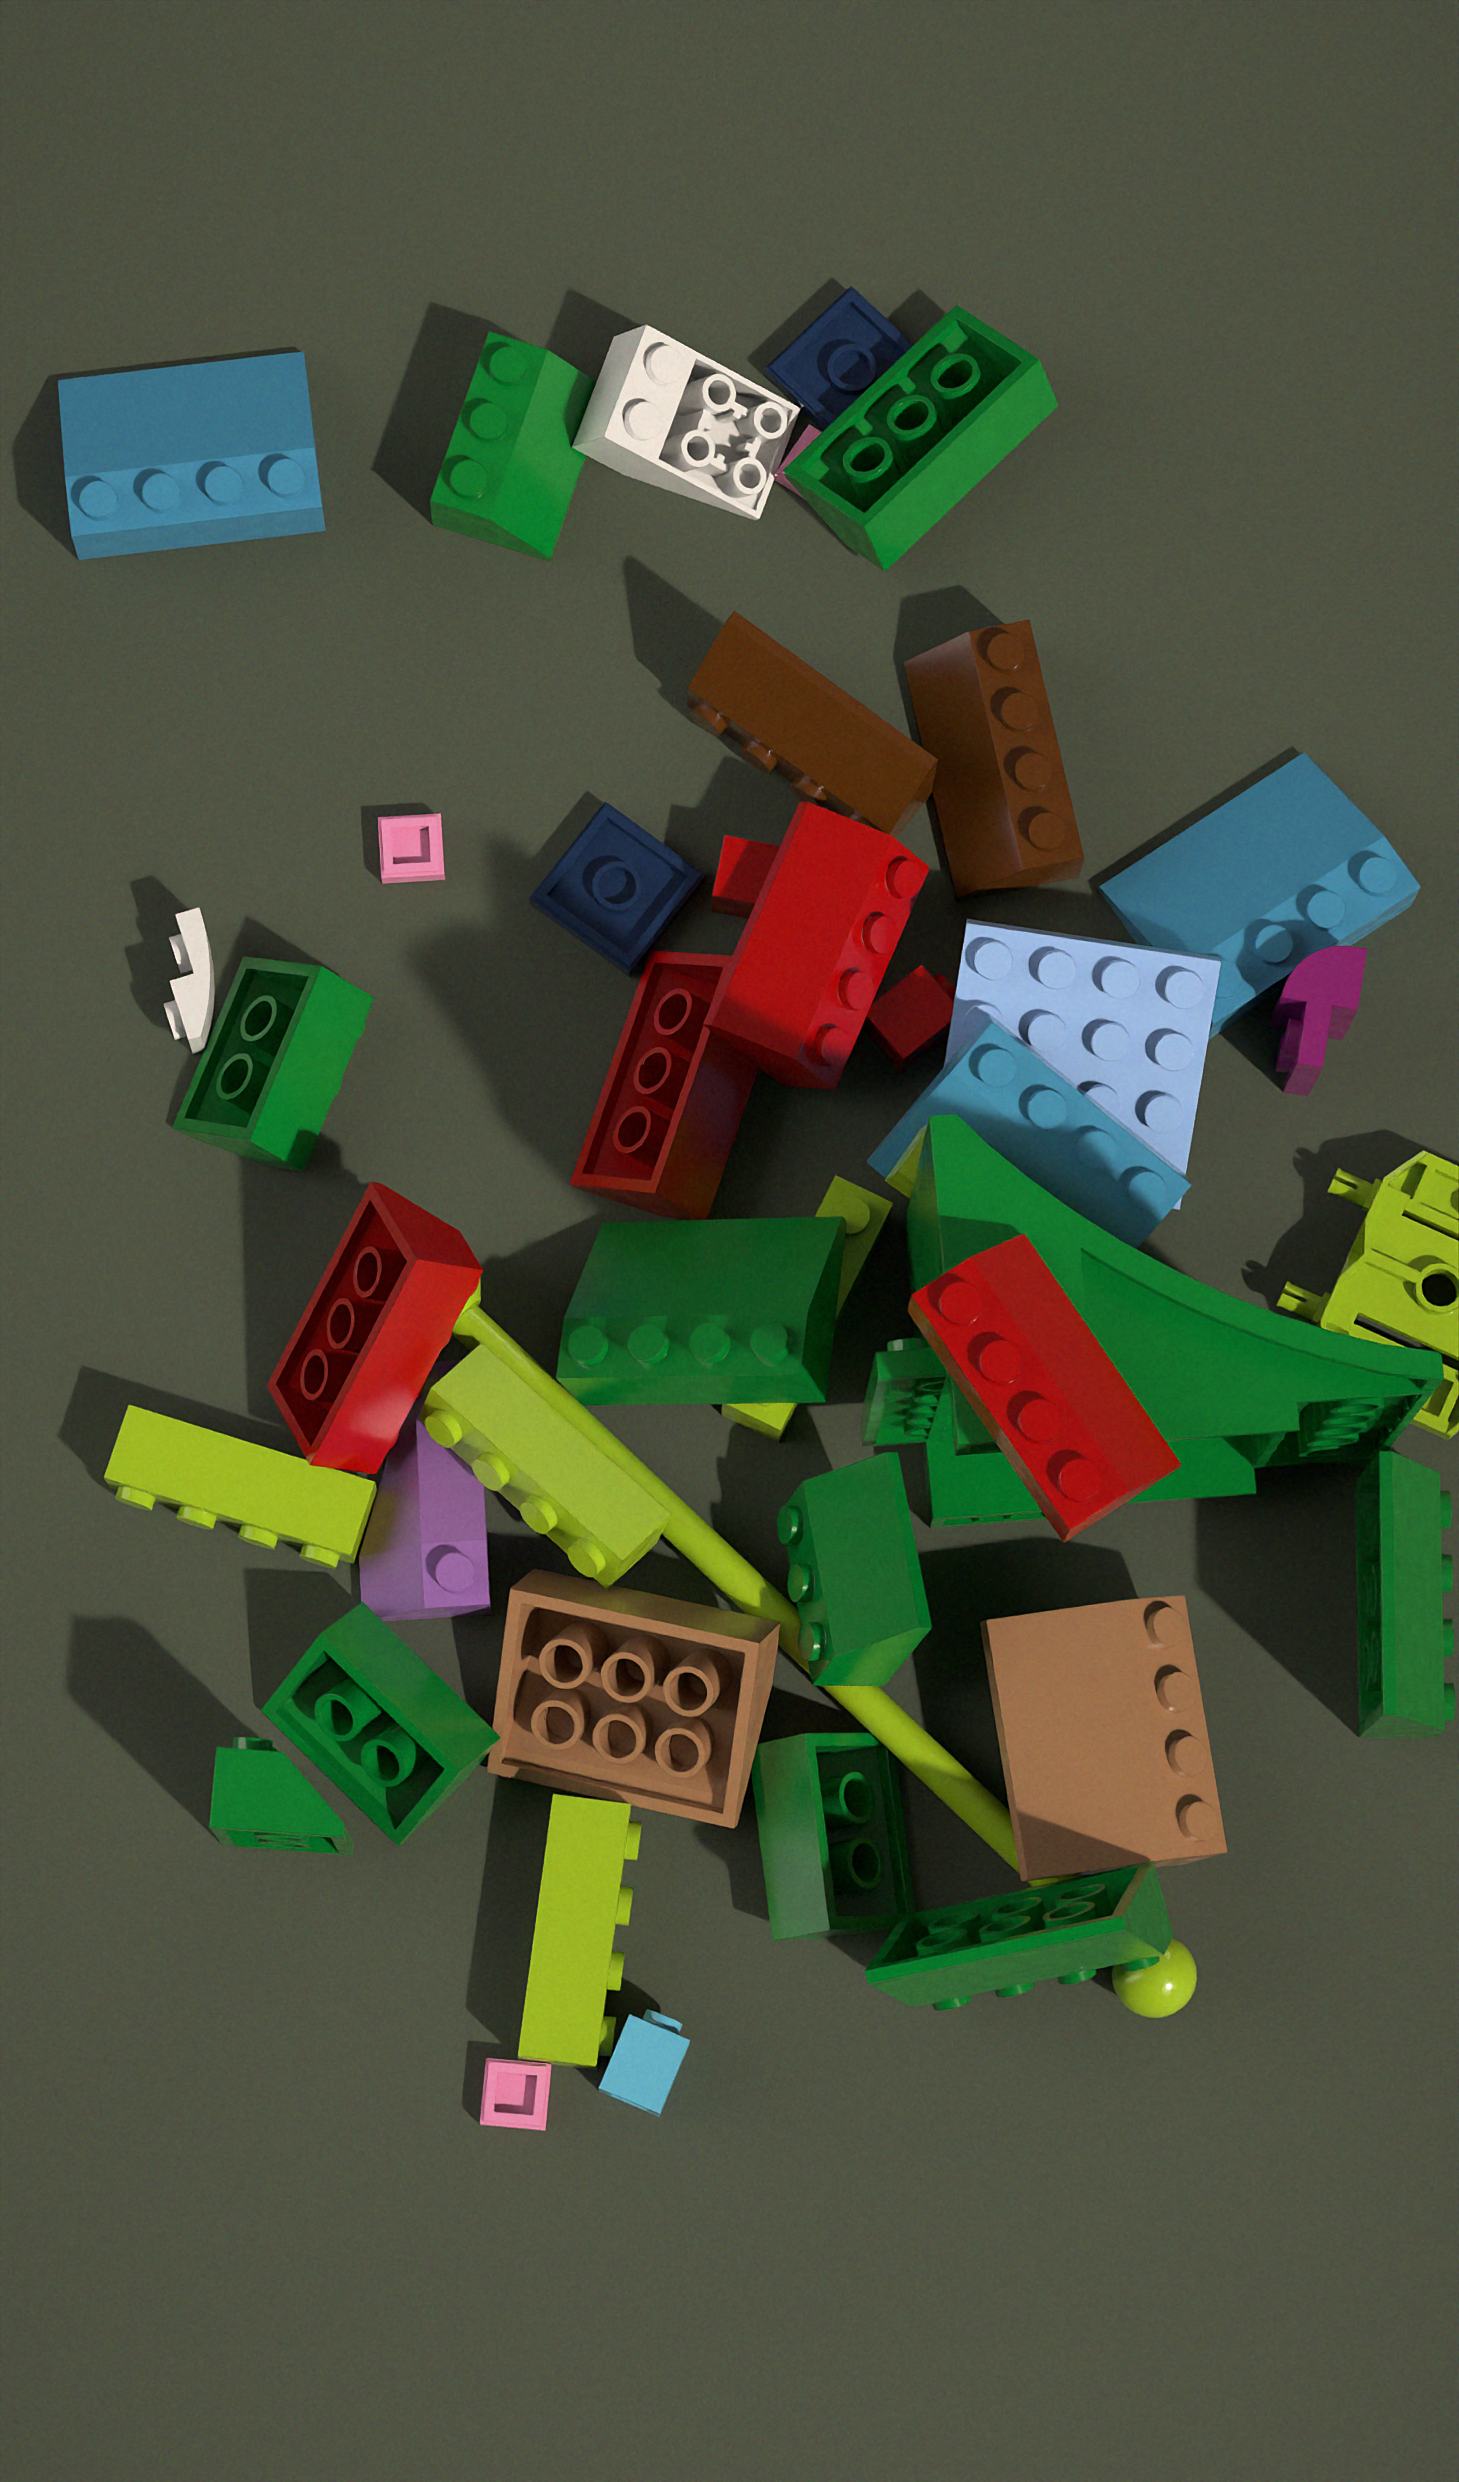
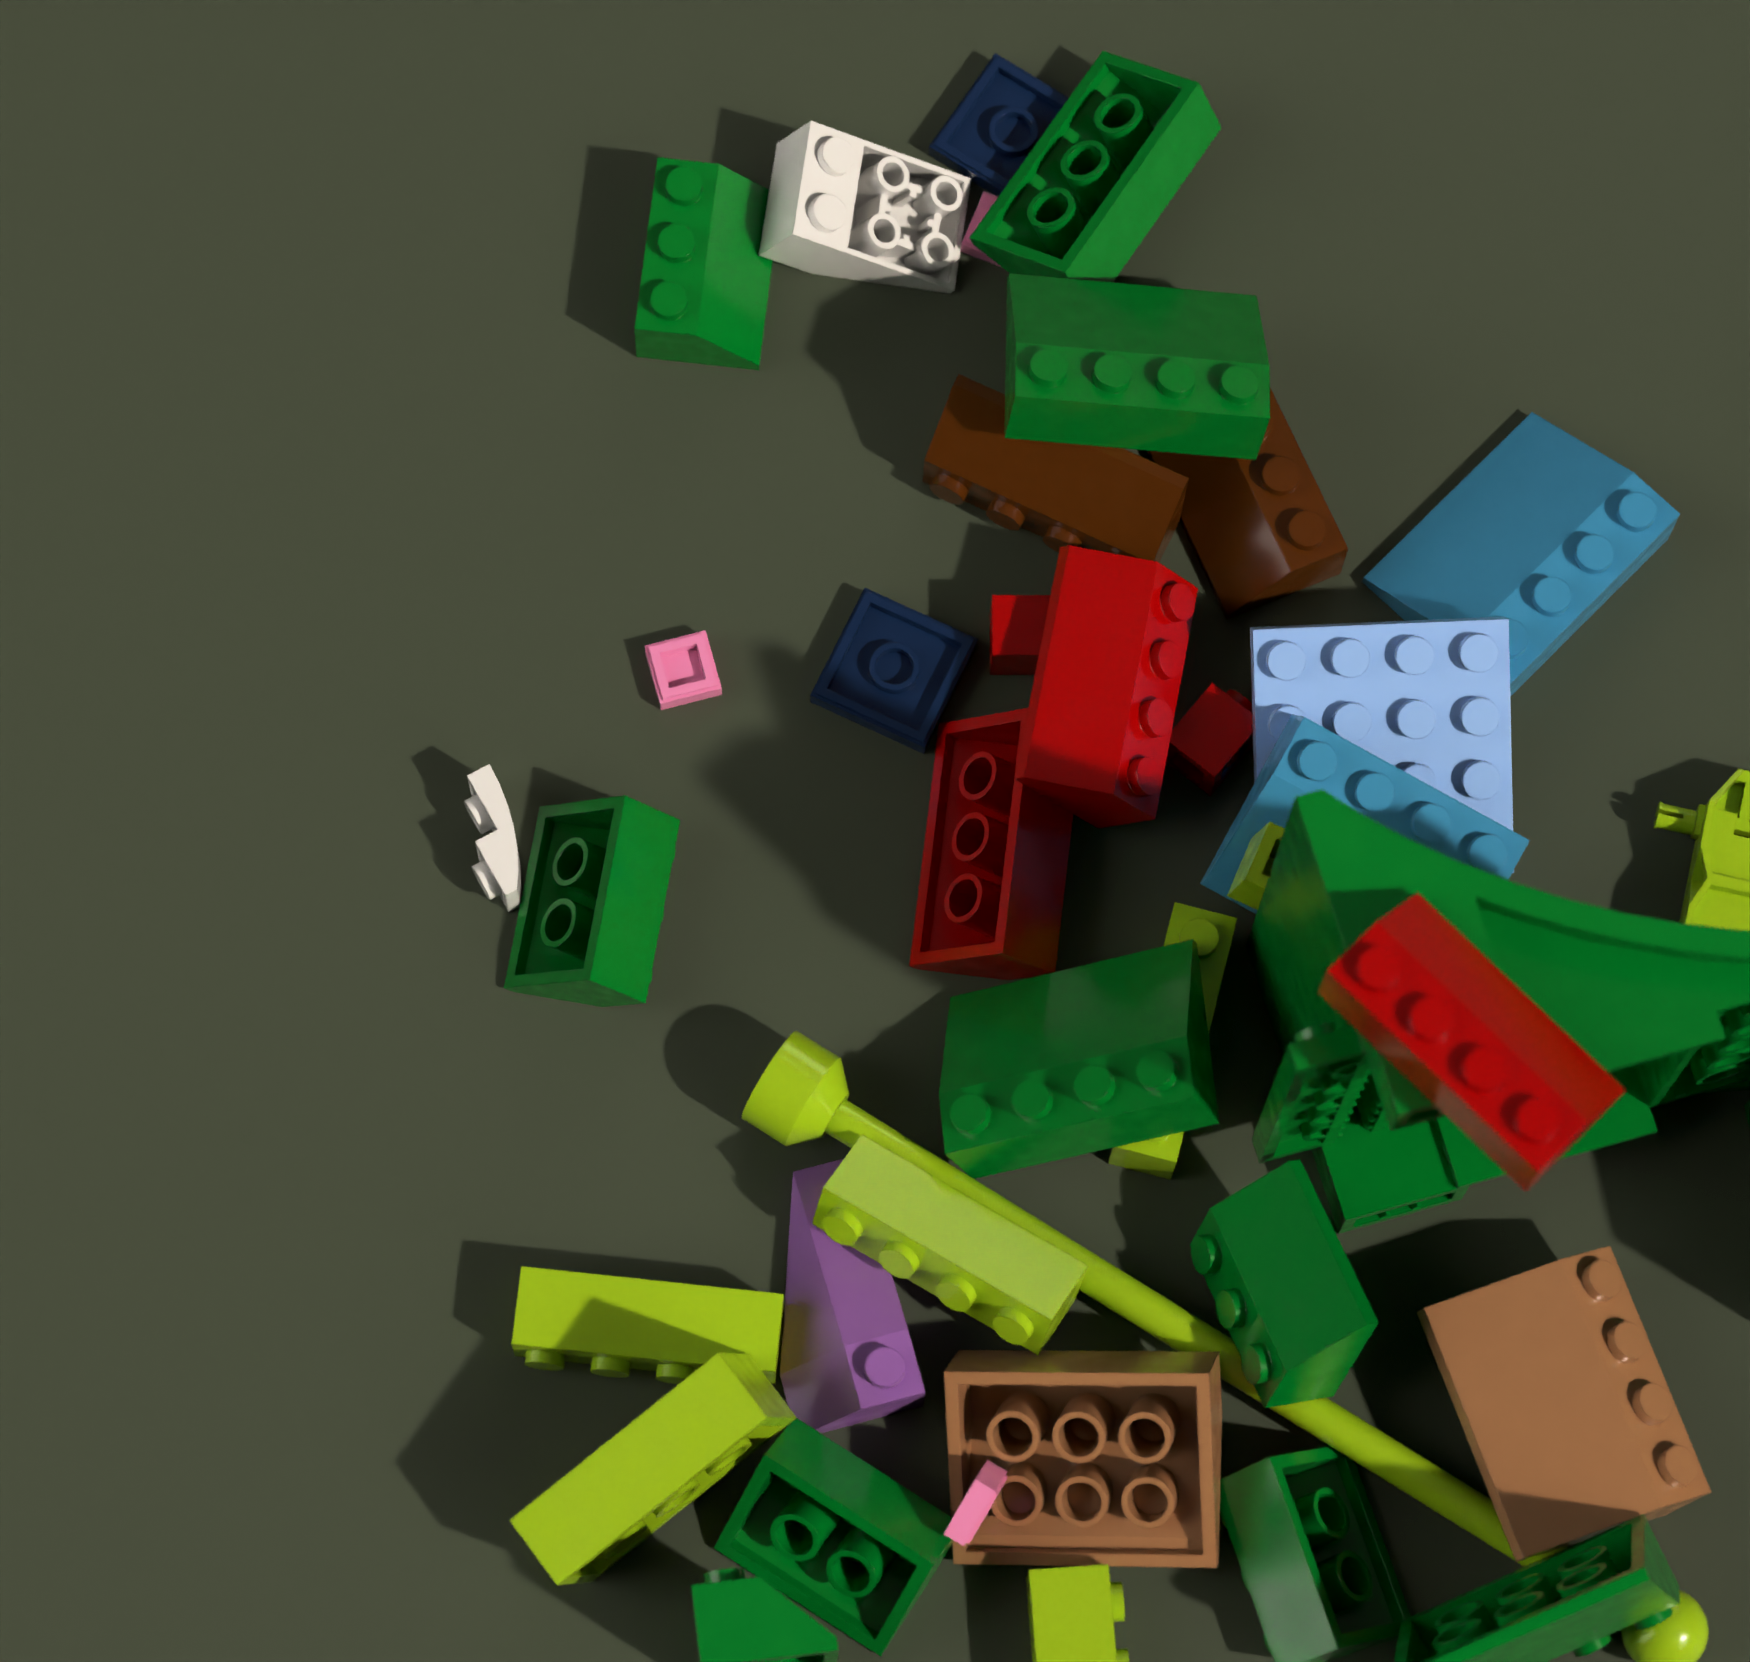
camera: 10 degrees left, 5 degrees down
(190, 456) = (388, 334): dark azure slope -> none
(212, 1625) = (653, 1468): none -> lime brick
(373, 1331) = (752, 1143): red slope -> none
(515, 1720) = (976, 1503): none -> bright pink tile
(909, 636) = (1135, 367): none -> green slope
(1316, 1006) = (1606, 654): magenta brick -> none

